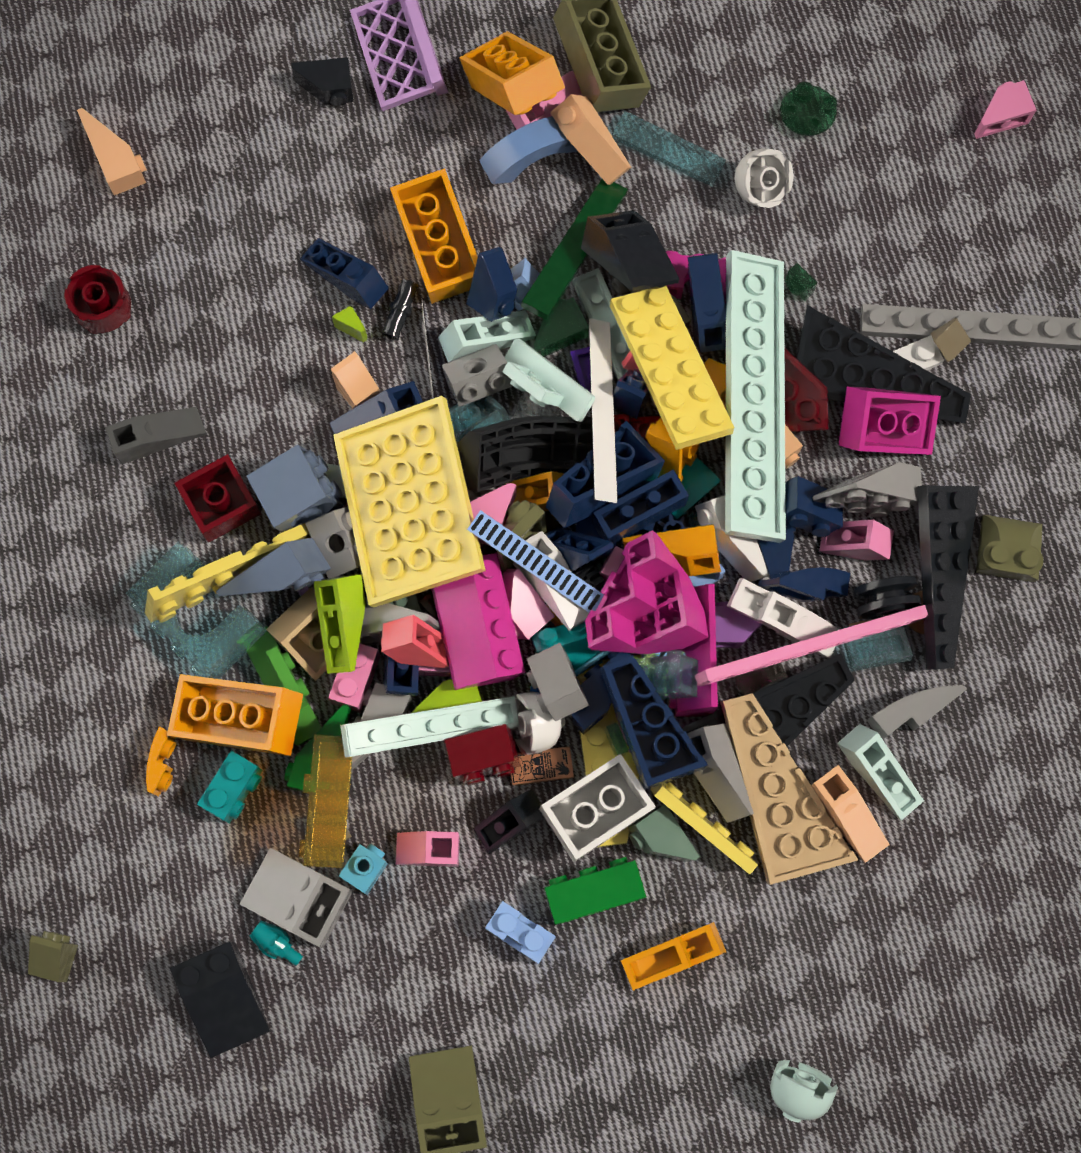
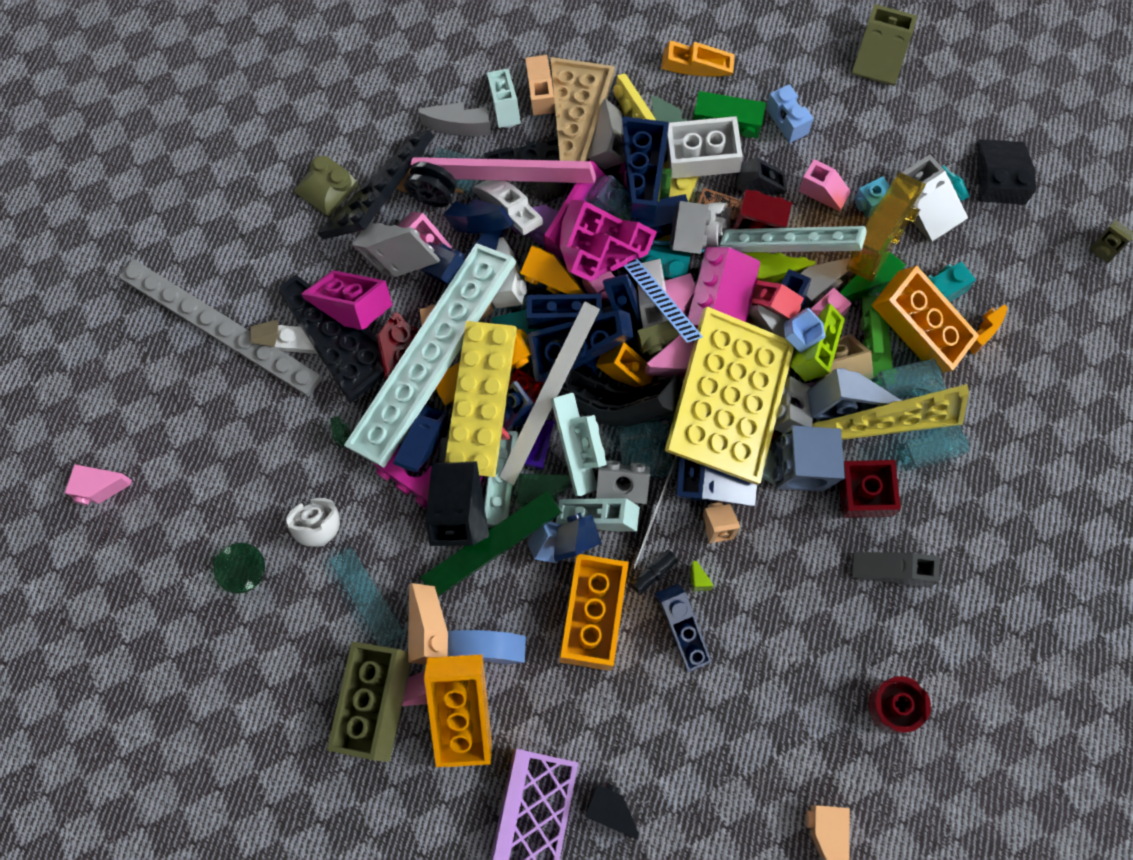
camera: 145 degrees left, 5 degrees down
(363, 614) = (804, 330): none -> light blue panel

